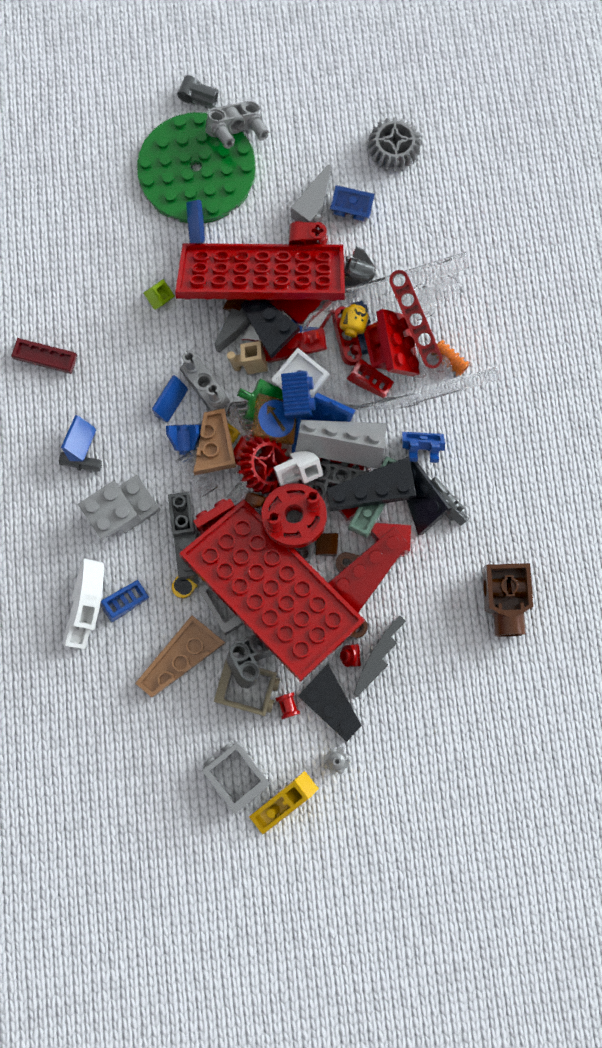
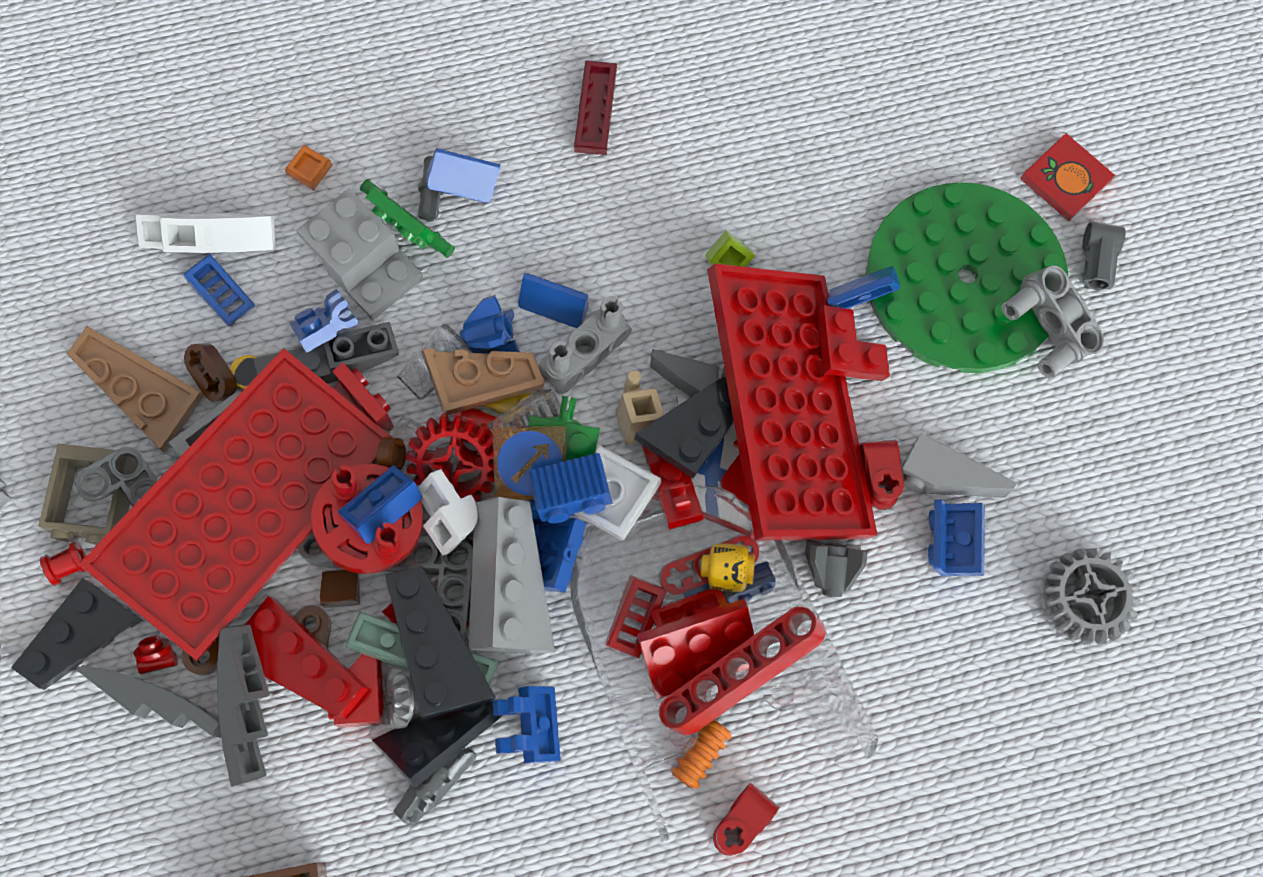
camera: 80 degrees right, 5 degrees down
(48, 538) = (308, 167): none -> orange tile
(110, 470) = (404, 221): none -> green plate
(145, 100) = (1067, 177): none -> red tile
(163, 539) = (321, 325): none -> blue plate
(179, 608) = (210, 371): none -> reddish brown beam
(233, 241) = (843, 353): none -> red plate
(288, 504) = (381, 503): none -> blue slope
(384, 601) = (240, 715): none -> dark grey slope
(406, 512) = (399, 698): none -> light grey gear
(489, 342) = (747, 815): none -> red piece

